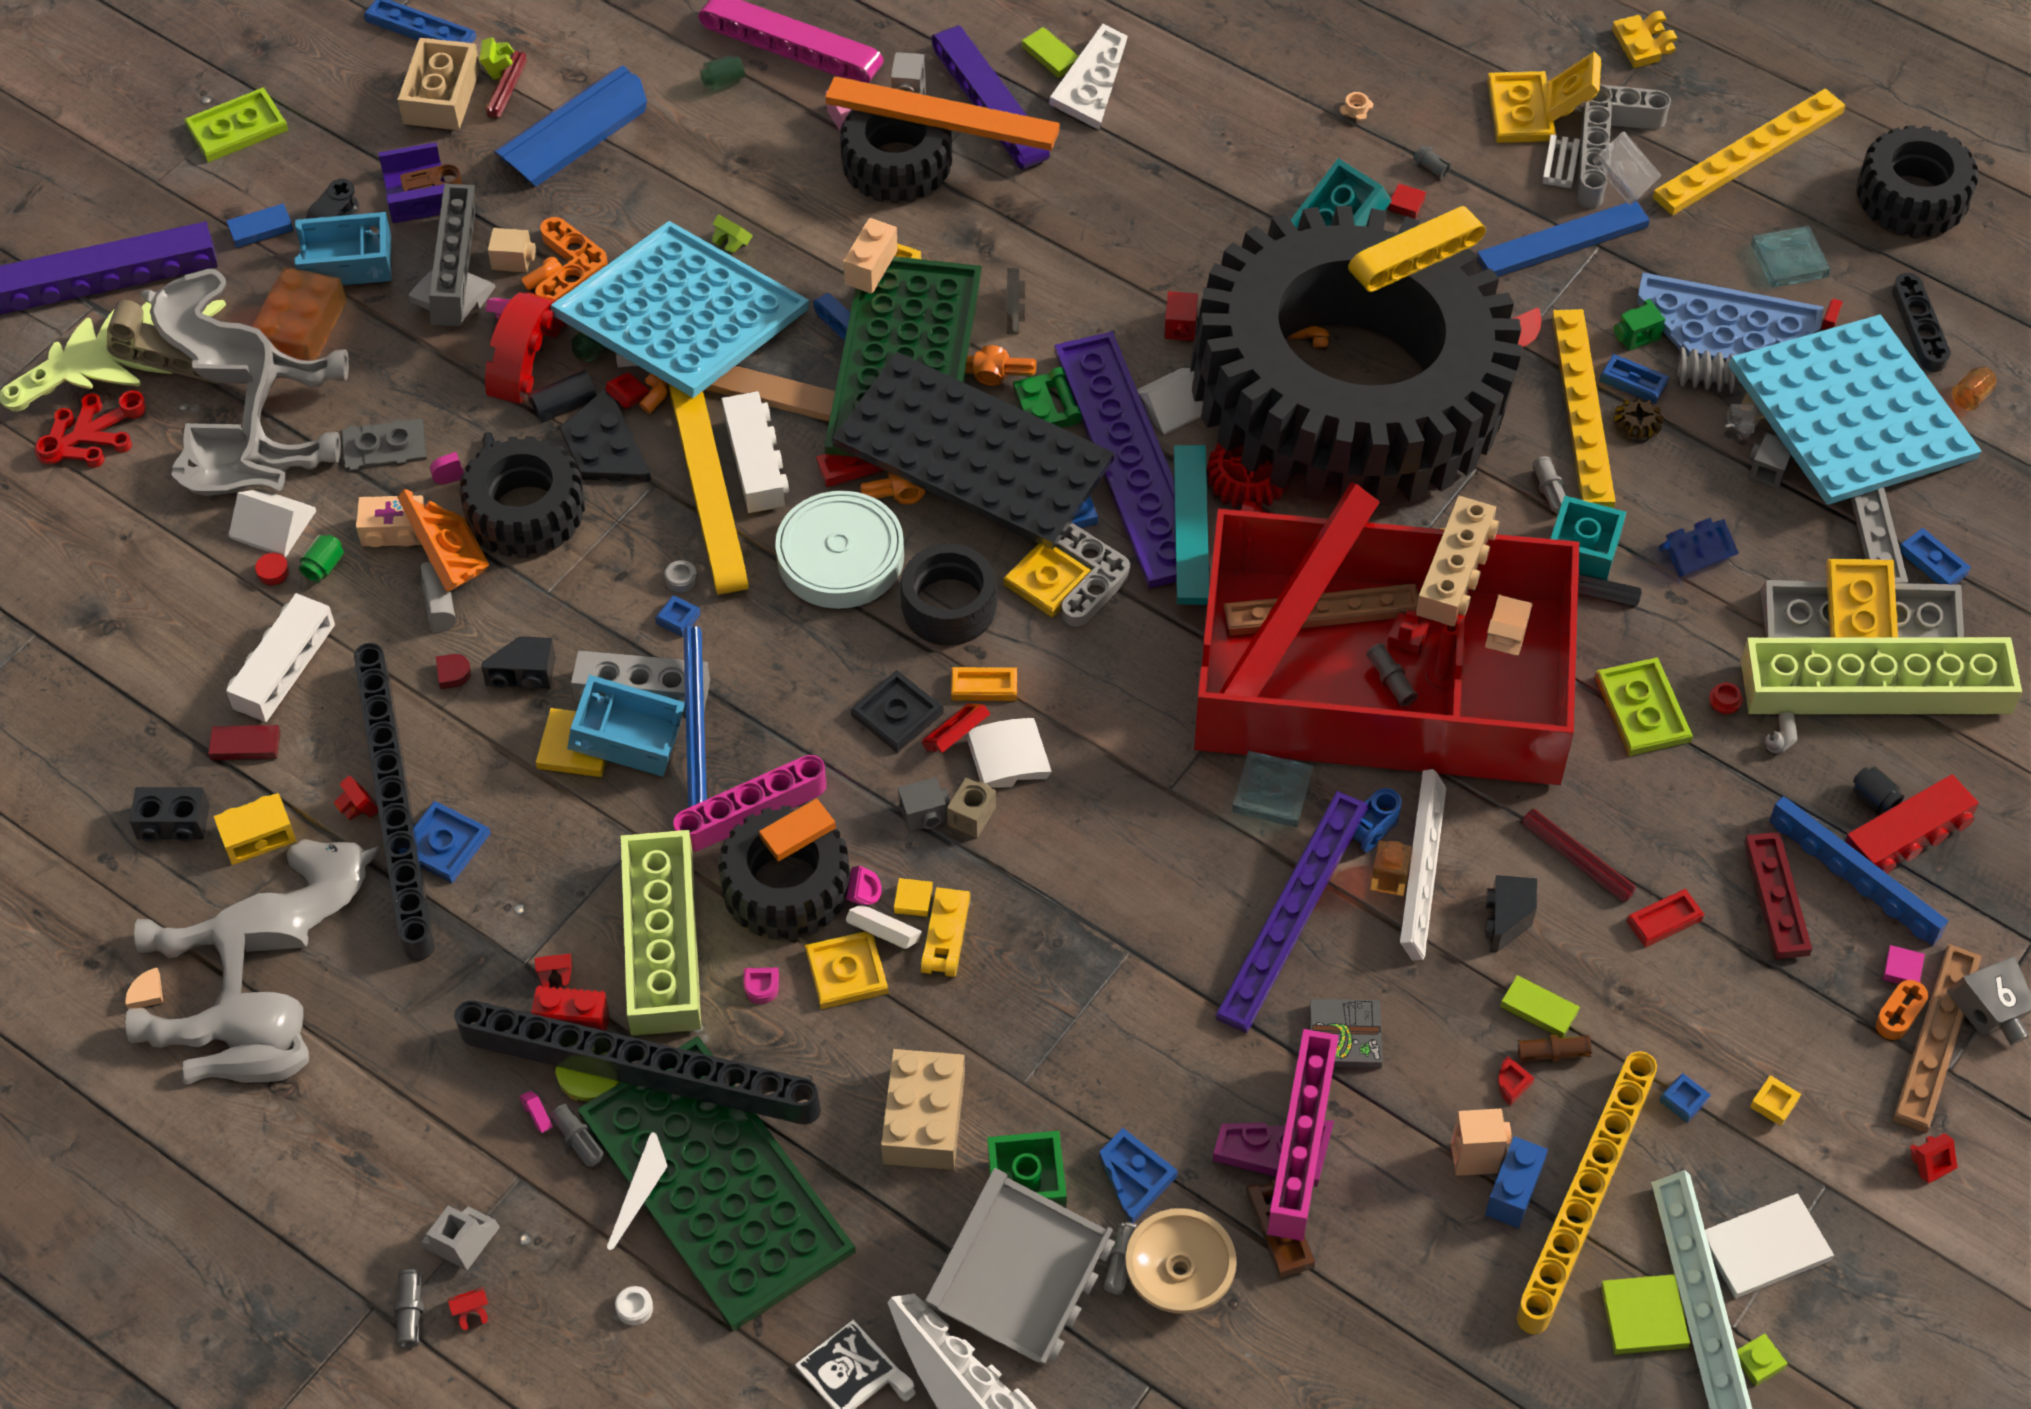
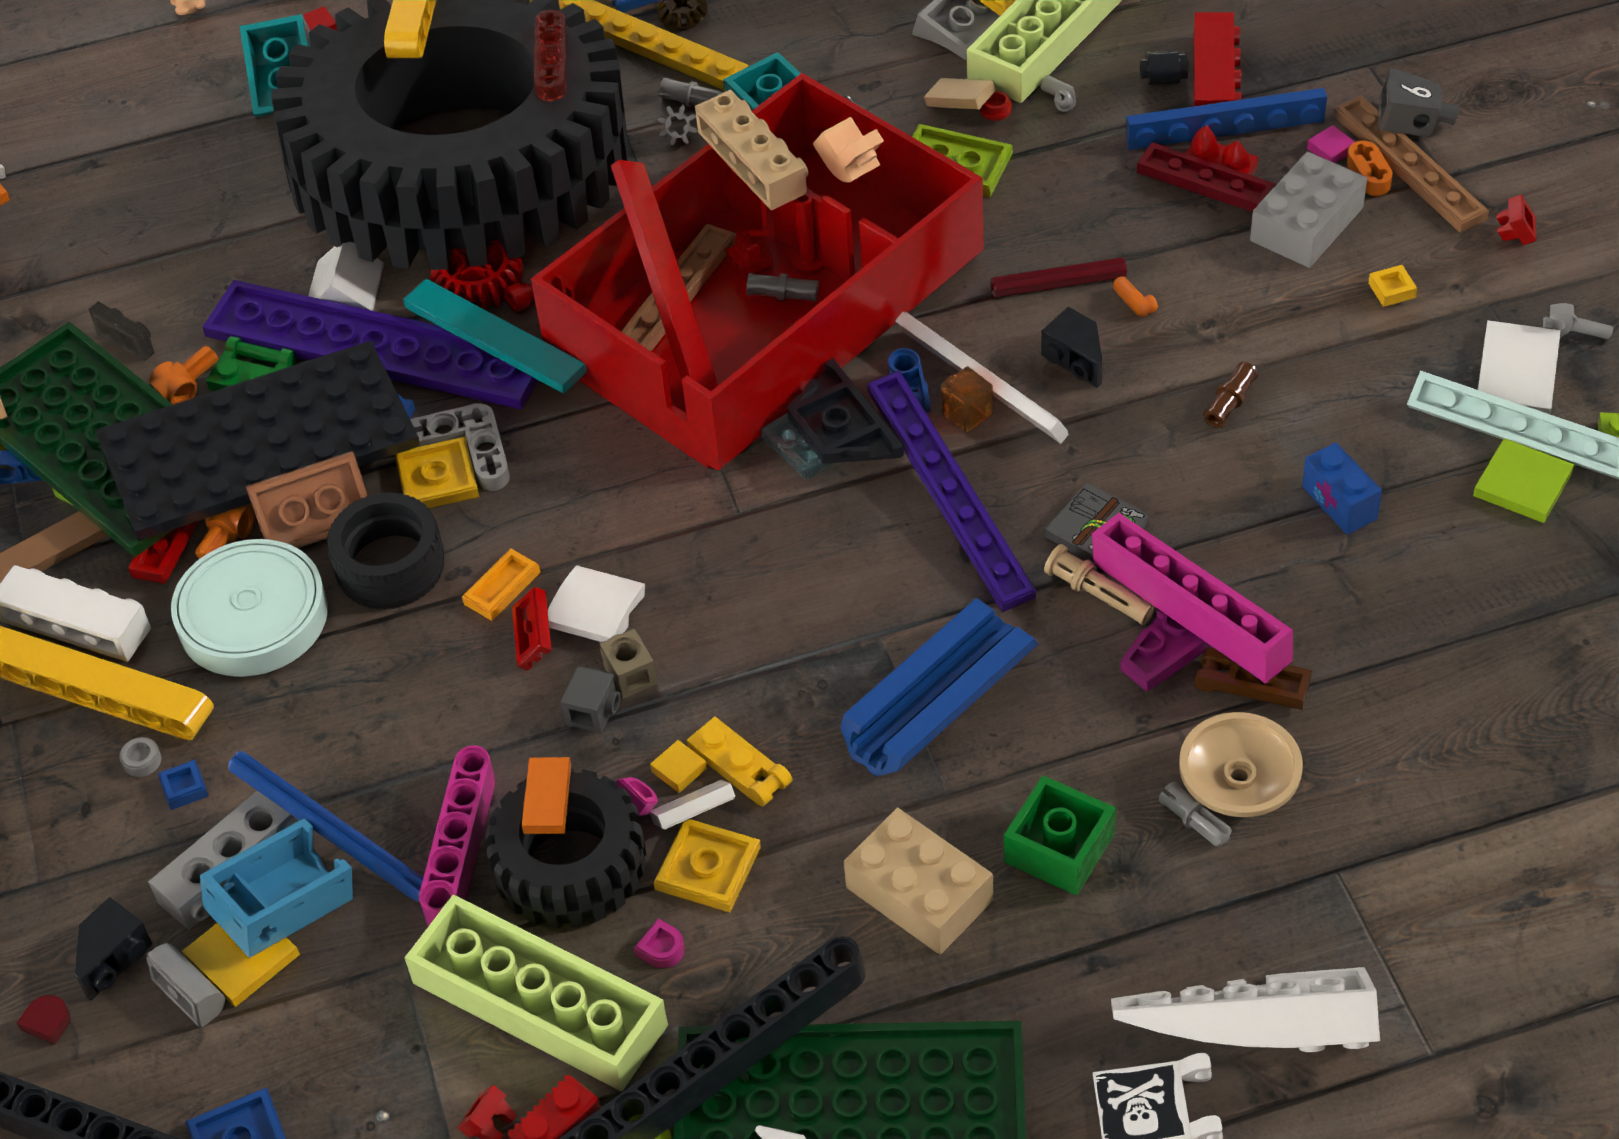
camera: 50 degrees left, 5 degrees down
(528, 727) = (184, 984): none -> light grey brick
(897, 711) = (465, 667): black tile -> none
(945, 515) = (306, 501): none -> nougat tile
(1020, 1268) = (1160, 890): light grey panel -> none
(1106, 1015) = (932, 688): none -> blue piece
(1135, 1173) = (1116, 755): blue wing -> none
(1181, 316) = (269, 226): red brick -> none
(1284, 1053) = (1085, 577): none -> tan pin
(1291, 796) = (840, 421): none -> black wing
(1437, 364) = (552, 54): none -> clear red beam
(1479, 1142) = (1289, 486): light nougat brick -> none
(1513, 496) = (675, 134): none -> light grey gear
(1513, 1080) = (1235, 441): red tile -> none
(1539, 1006) = (1180, 383): lime tile -> none
(1583, 1204) = (1387, 451): yellow beam -> none
(1598, 918) = (1133, 298): none -> orange arm
(1665, 918) = (1164, 259): red tile -> none
(1685, 1097) = (1341, 341): blue tile -> none
(1699, 548) = (841, 39): clear blue bracket -> none
(1712, 664) = (959, 93): none -> tan tile
(1804, 989) = (1308, 209): none -> light grey brick
(1813, 893) = (1232, 156): none -> red tile
(1845, 1252) = (1564, 319): none -> light grey bar

